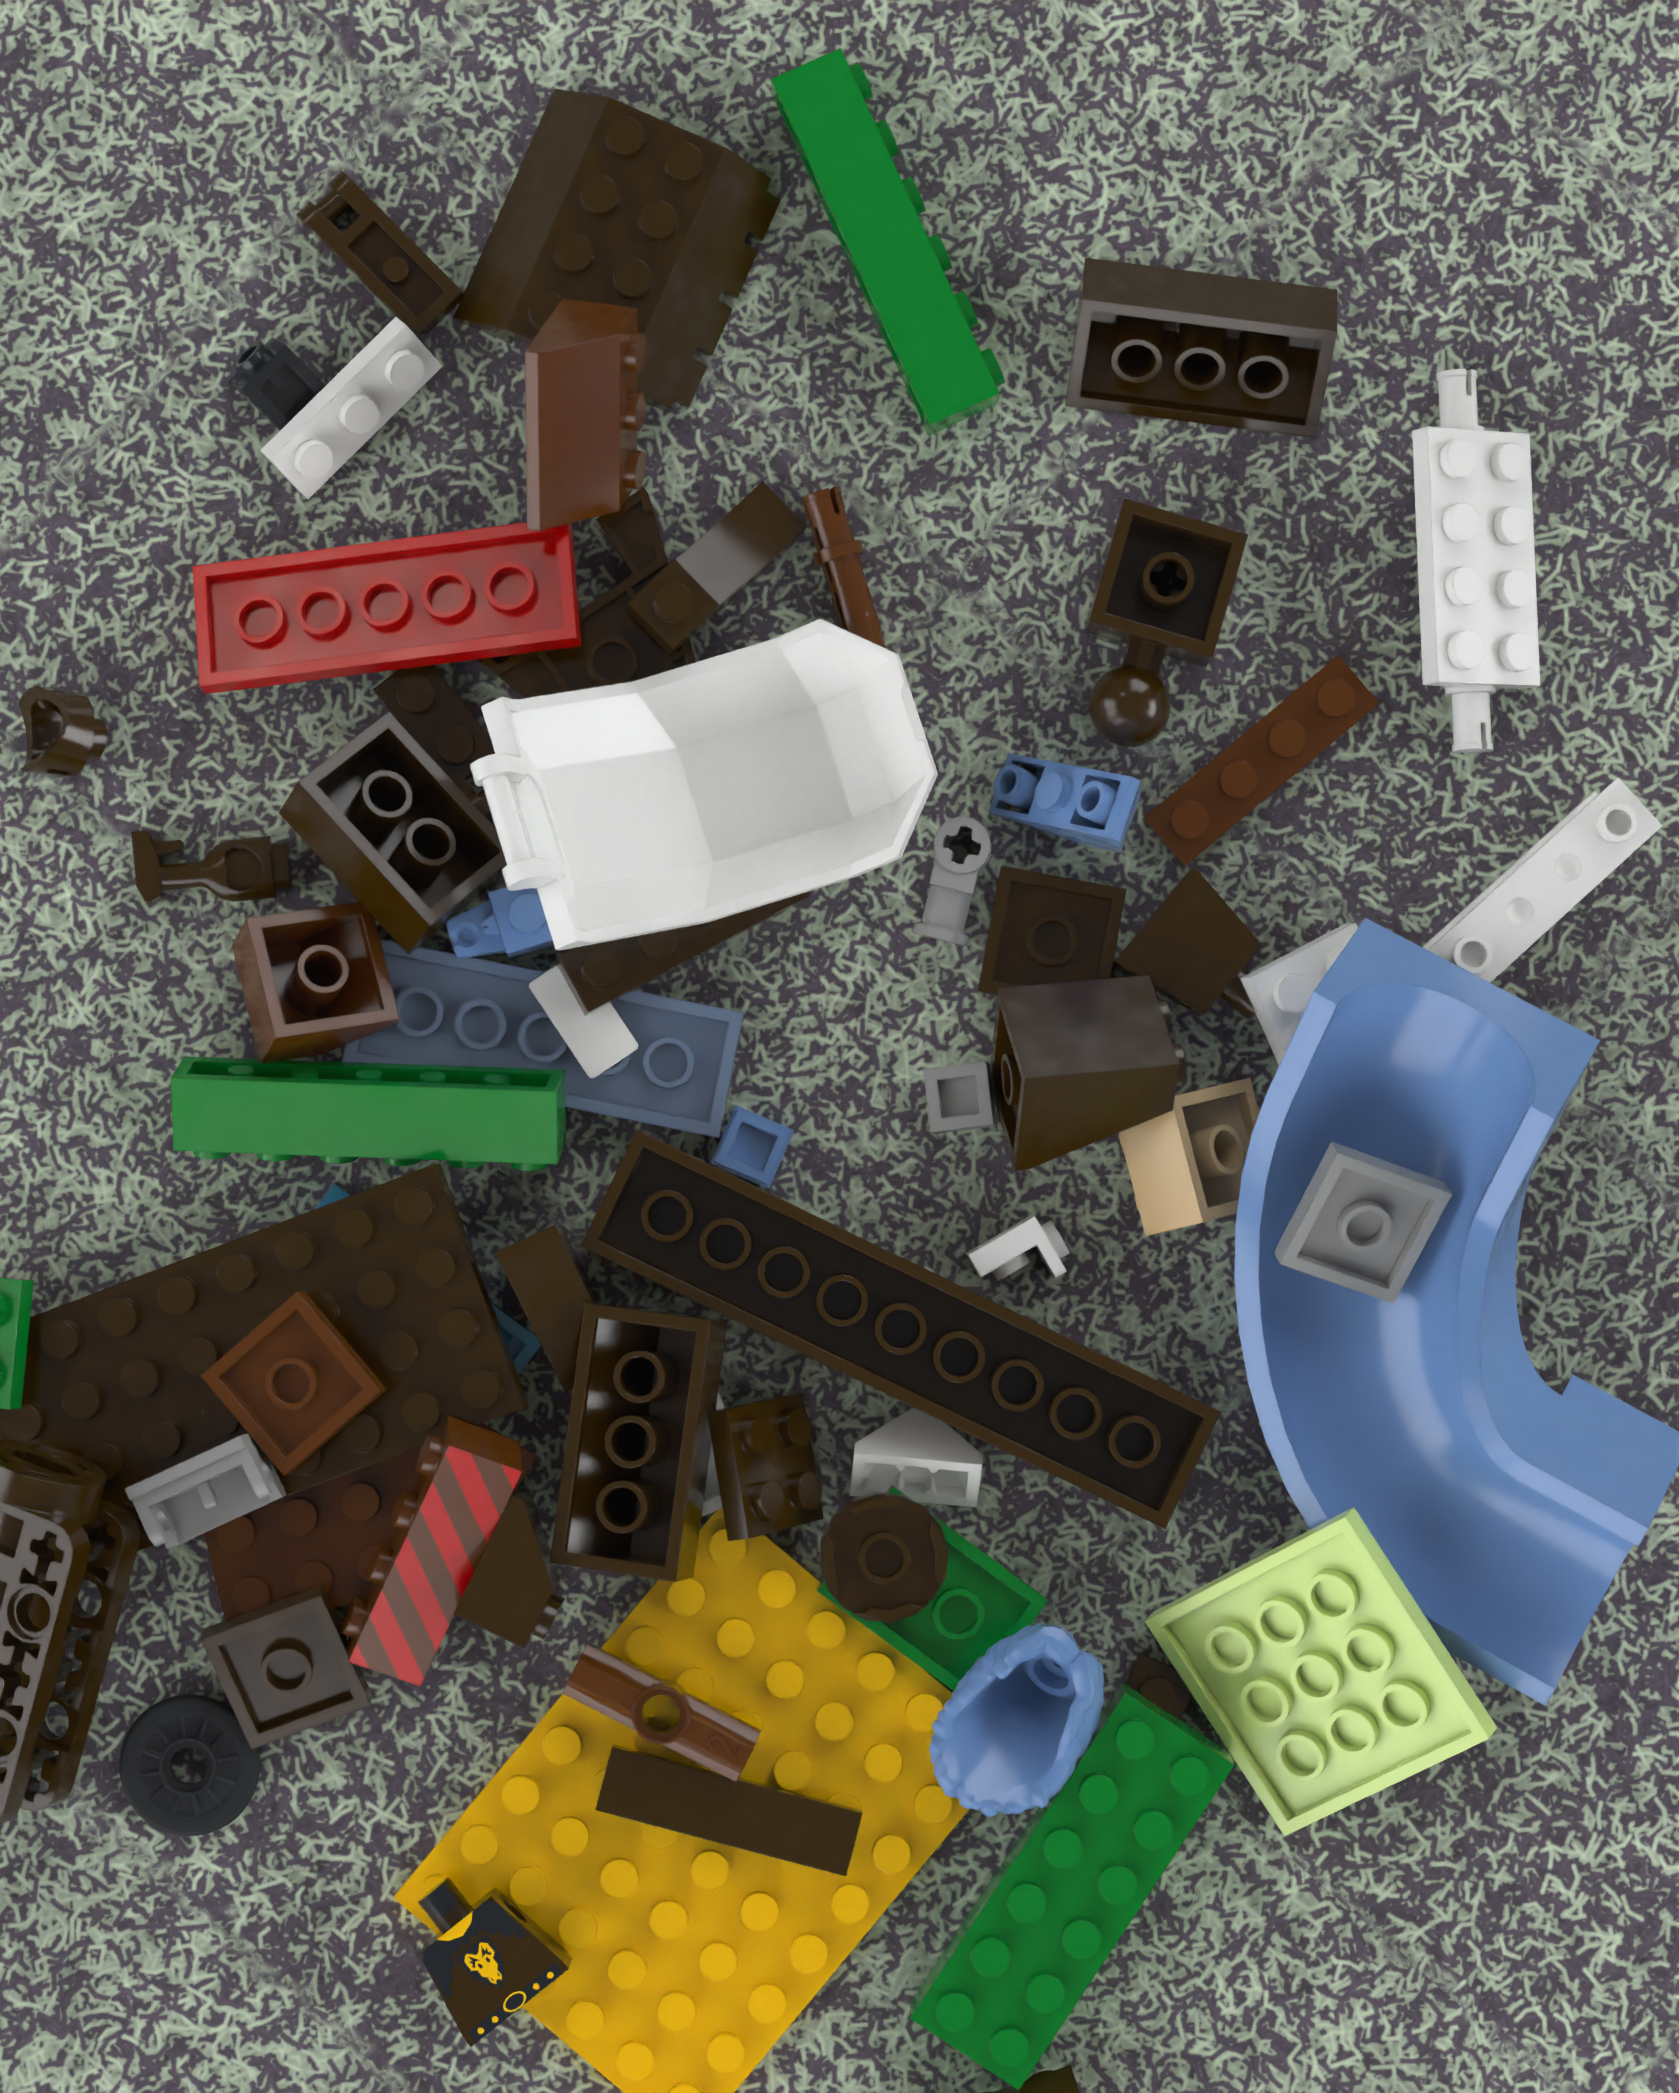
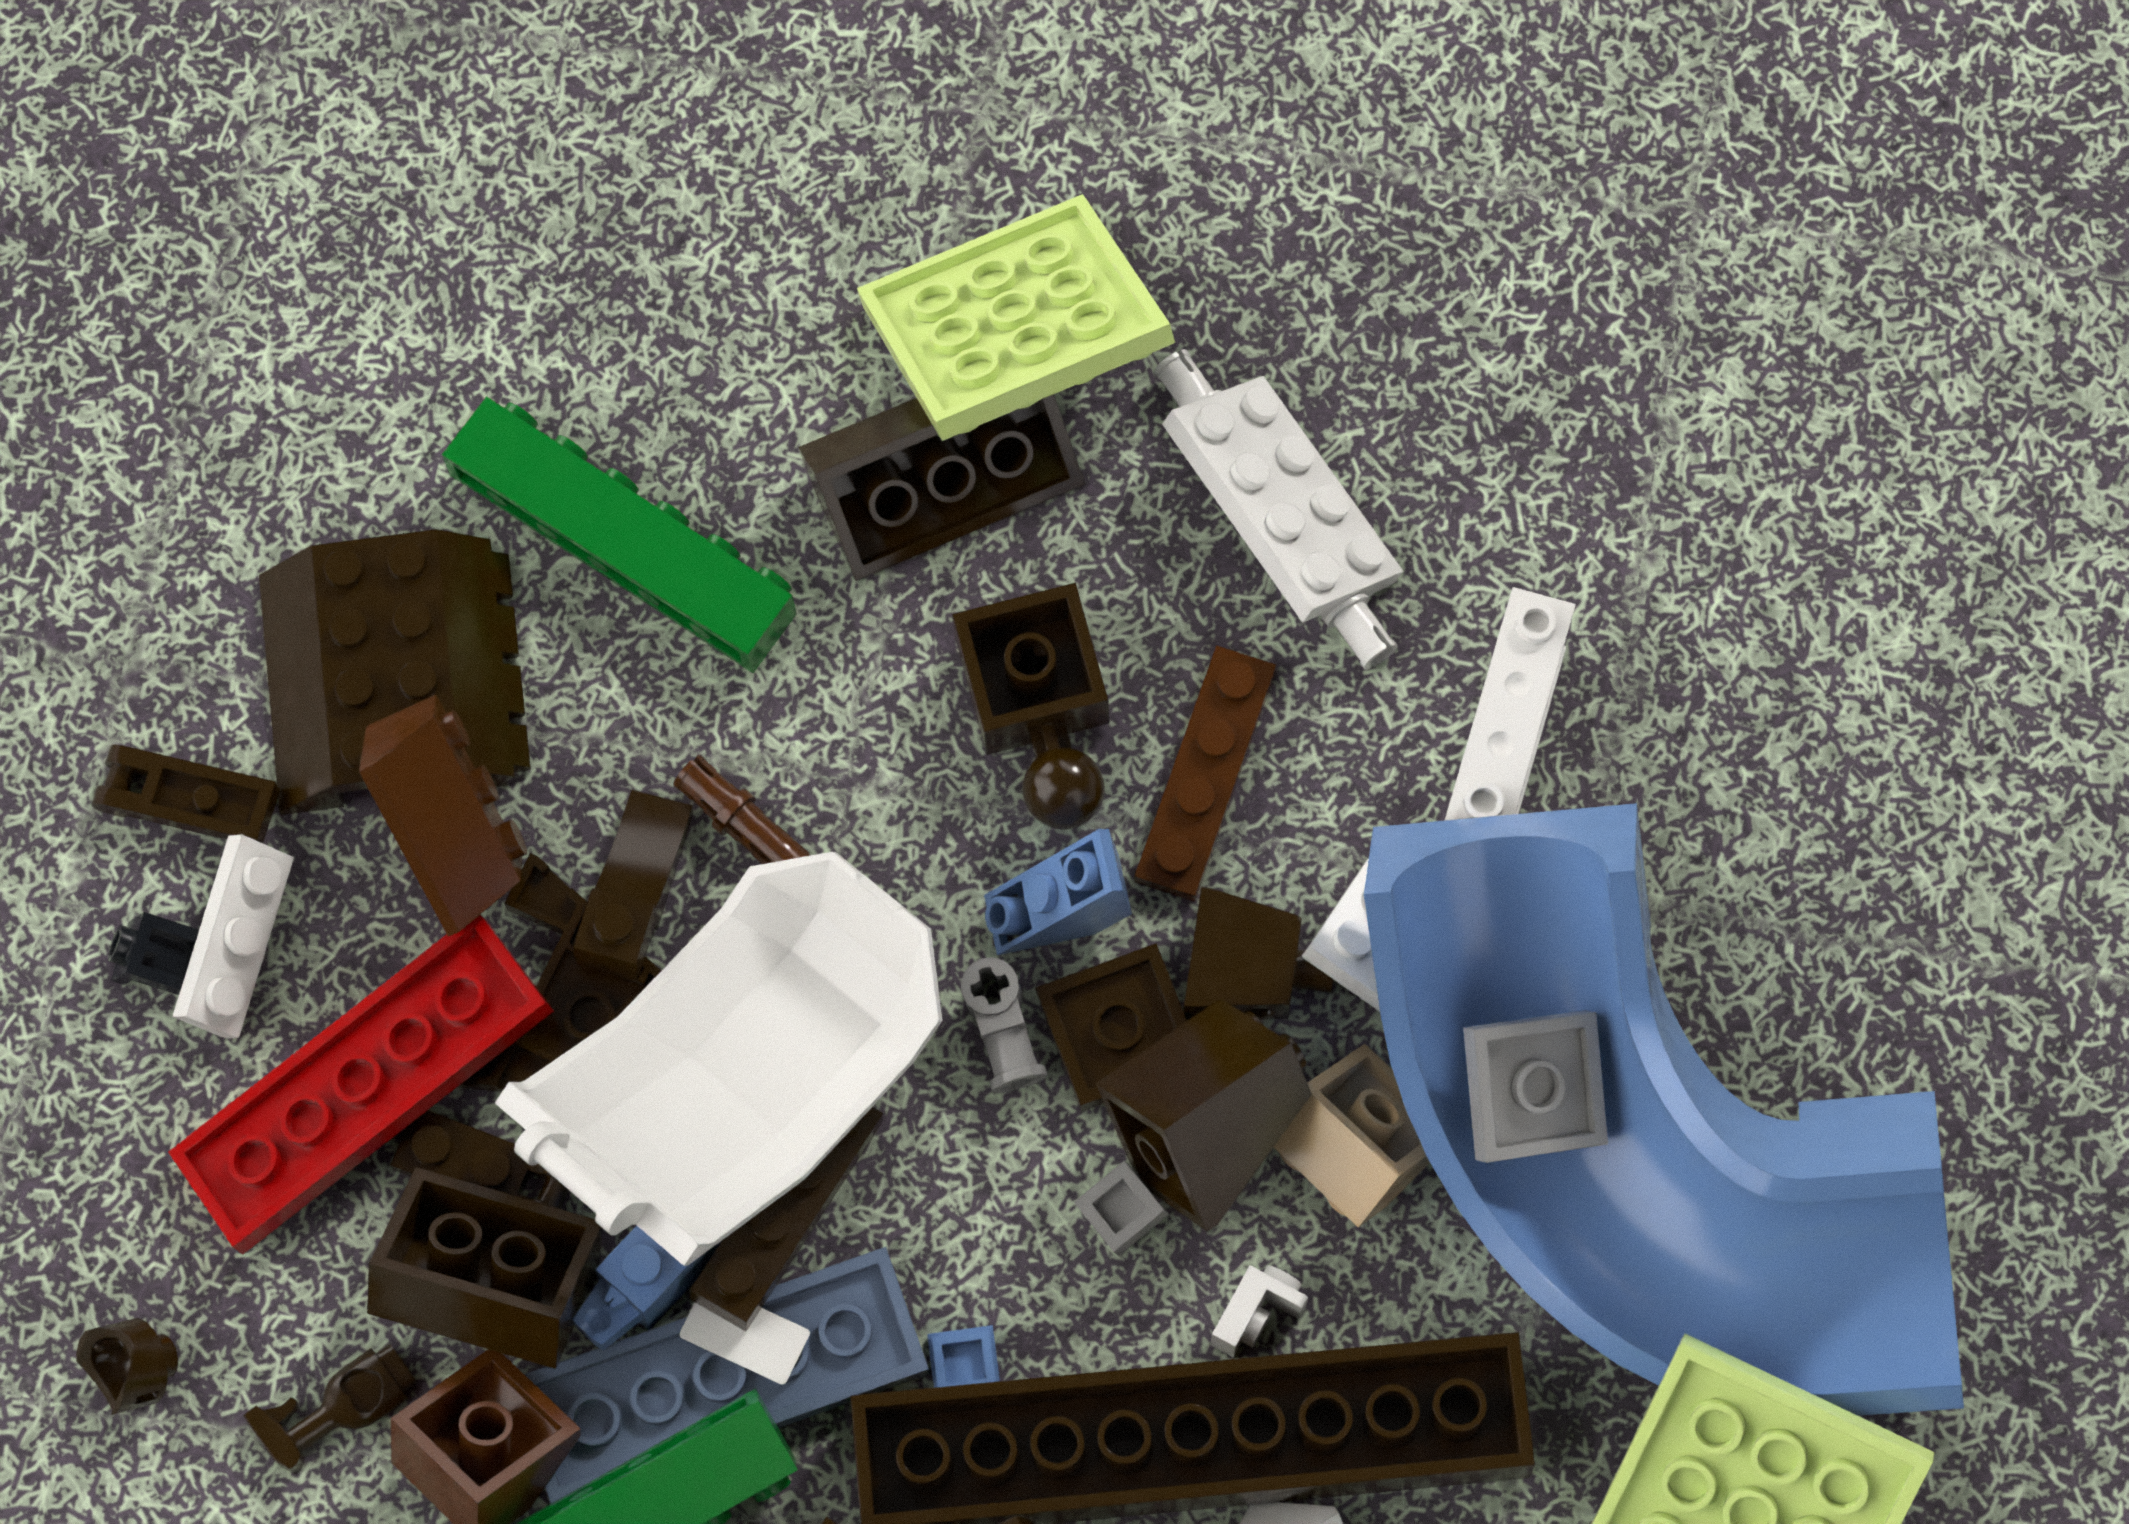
camera: 20 degrees left, 15 degrees down
(1343, 255) = (1015, 317): none -> yellowish green plate

